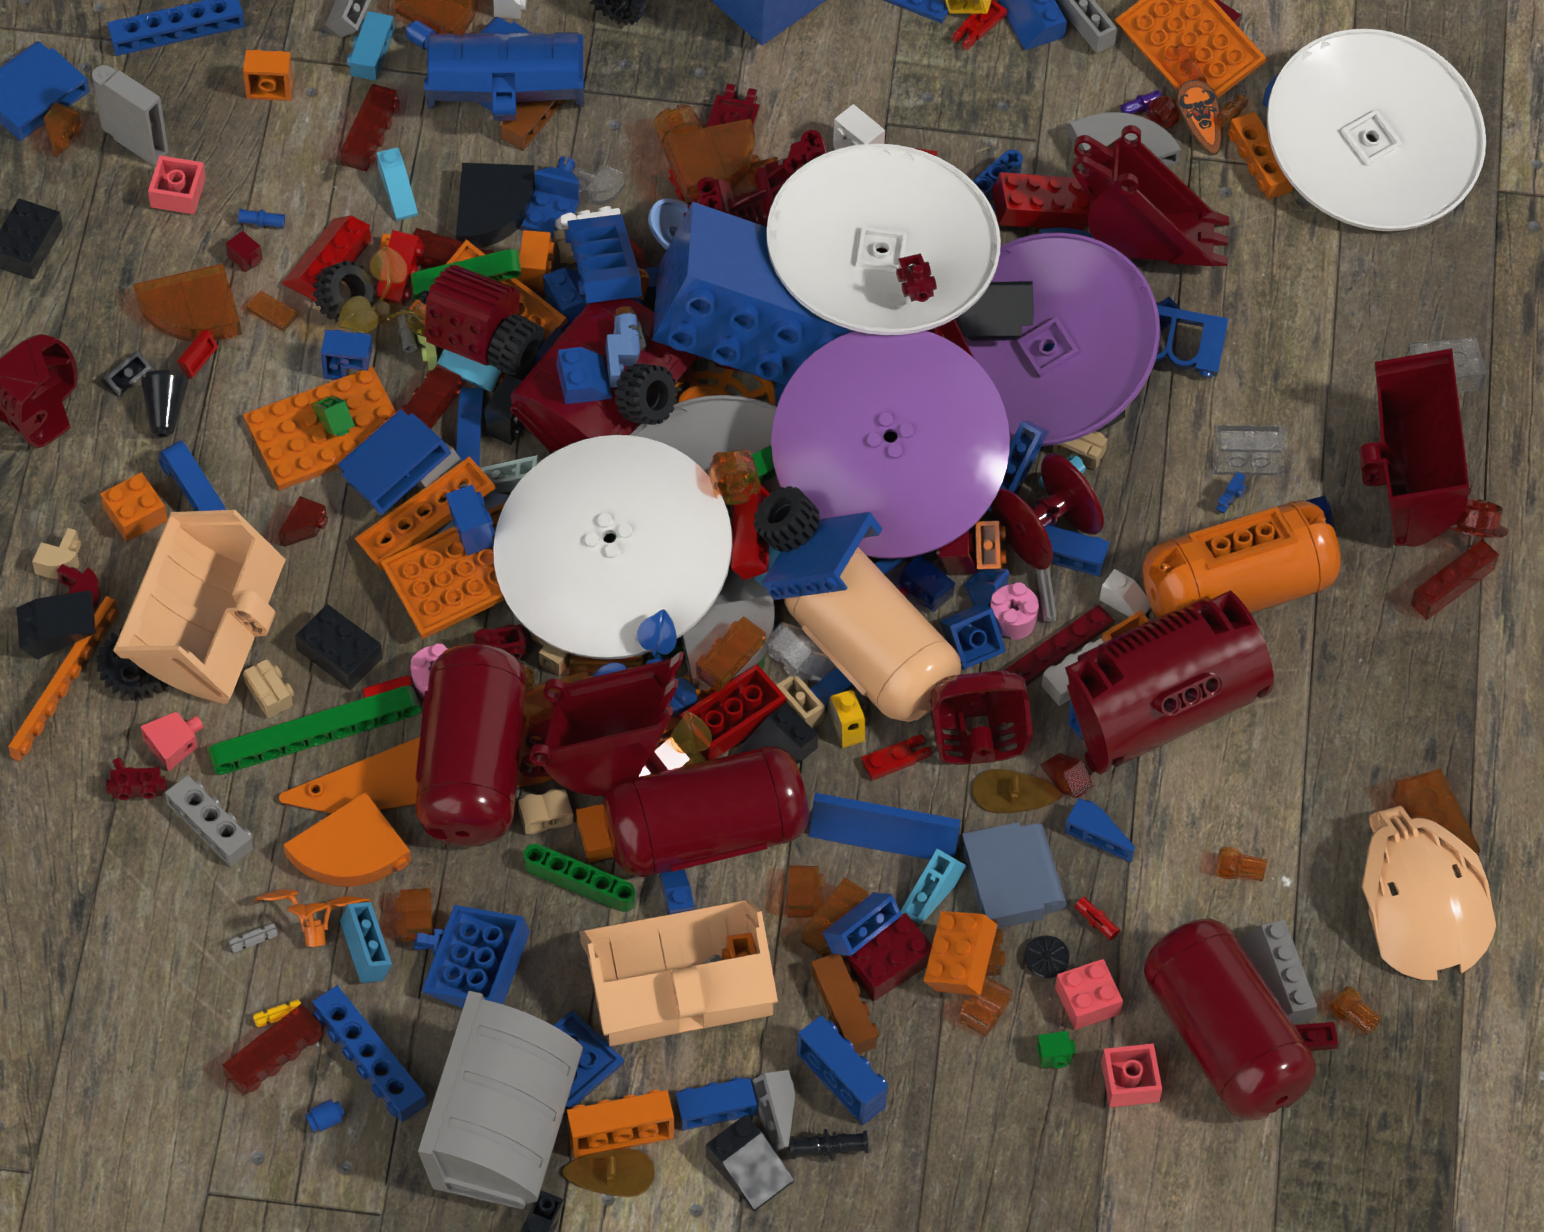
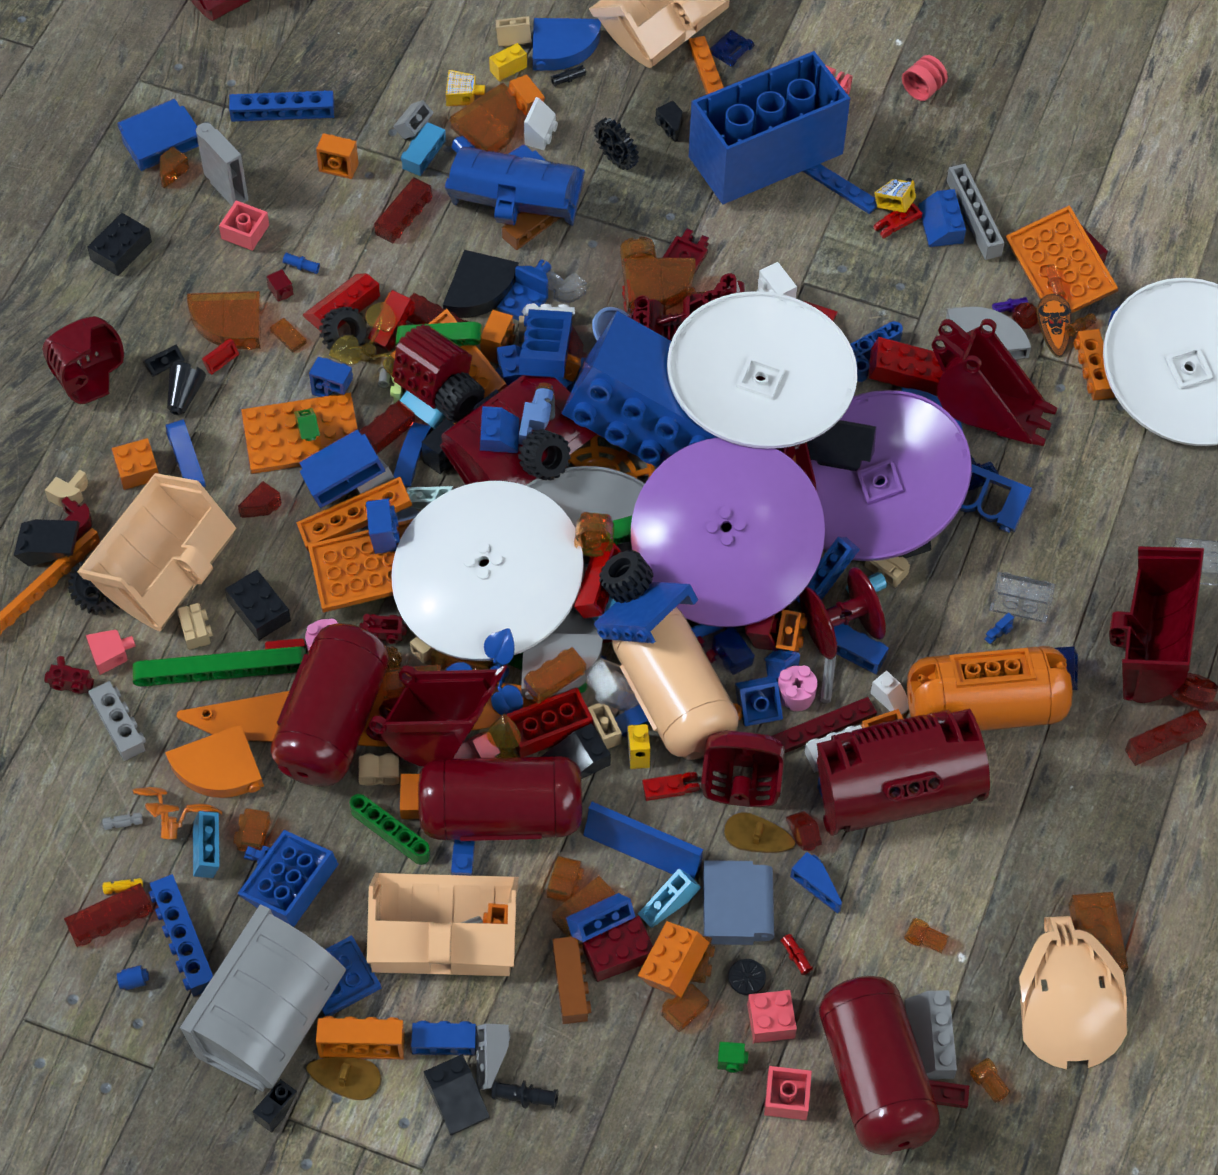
camera: 15 degrees right, 0 degrees up
(396, 183) = (411, 256): medium azure slope -> none
(842, 1069) = (551, 1034): blue brick -> none
(916, 278) = (778, 408): dark red brick -> none

